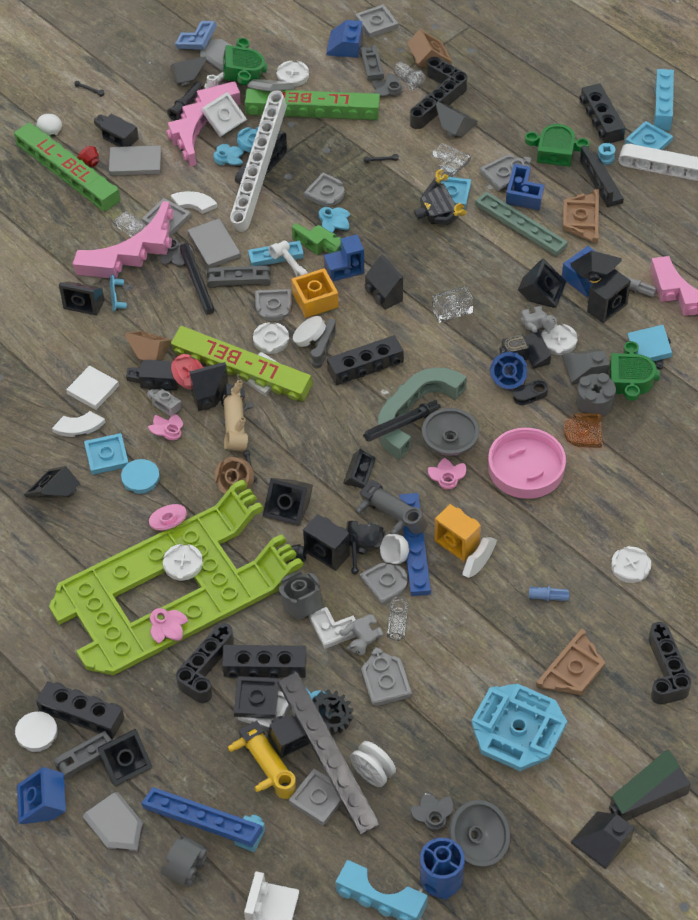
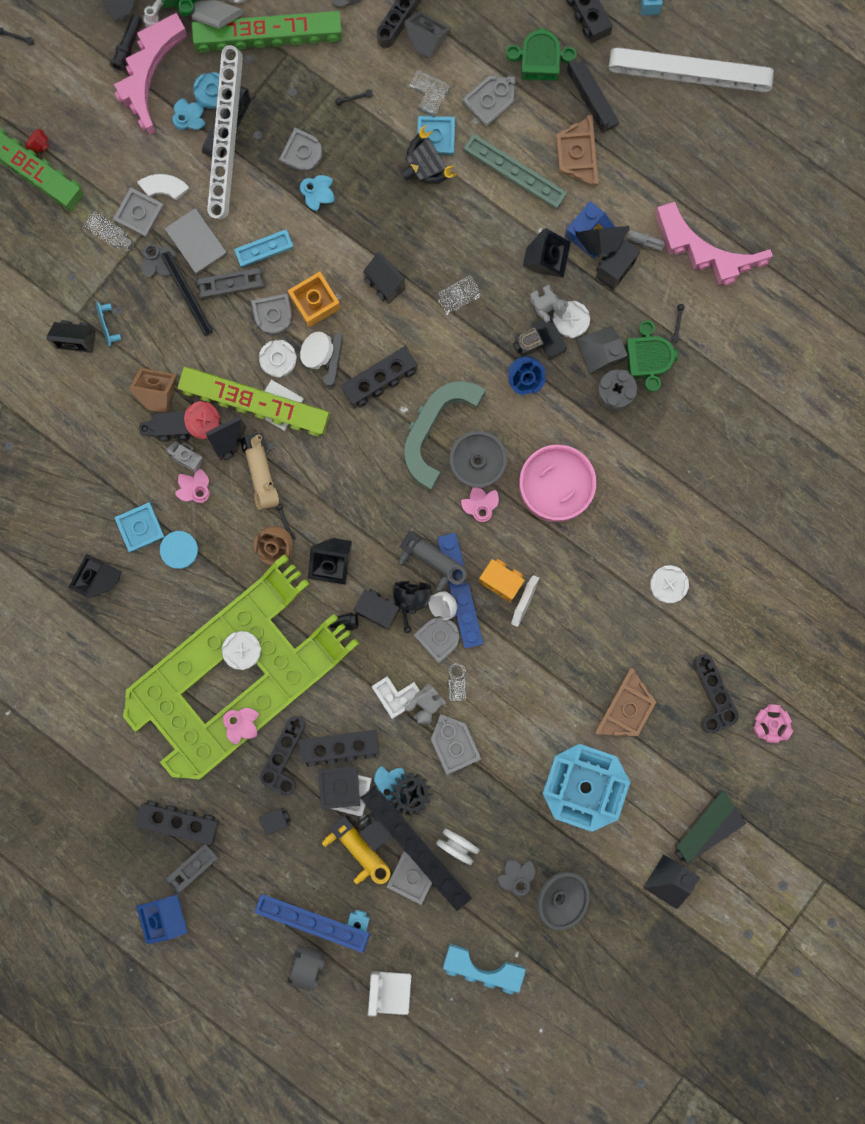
camera: 10 degrees left, 30 degrees up
(36, 731) = (141, 849): white tile -> none
(74, 426) = (105, 497): white tile -> none
(92, 387) = (108, 447): white tile -> none
(115, 823) = (234, 931): light grey tile -> none
(117, 130) = (59, 98): black hinge -> none
(124, 757) = (230, 869): black slope -> none
(132, 252) = (114, 270): bright pink arch -> none
(135, 160) = (88, 136): light grey tile -> none
(168, 517) = (211, 594): bright pink dish -> none
(182, 720) = (275, 821): none -> black brick
(223, 114) = (173, 61): white tile -> none
(281, 249) = (269, 247): white brick -> none
(301, 594) = (369, 679): dark grey brick -> none
(316, 239) = (306, 224): bright green plate -> none
(348, 261) = (339, 252): blue brick -> none
(359, 469) = (393, 510): black slope -> none
(422, 411) = (446, 435): black axle -> none
(441, 867) = (535, 943): blue cylinder -> none
(521, 191) = (511, 132): blue brick -> none
(526, 394) = (547, 394): black piece -> none
(548, 593) = (596, 631): medium blue axle -> none
(584, 430) = (608, 431): clear orange tile -> none
(606, 153) = (597, 64): medium azure wheel -> none
(649, 136) = (637, 31): medium azure tile -> none
(652, 342) = (665, 315): medium azure tile -> none

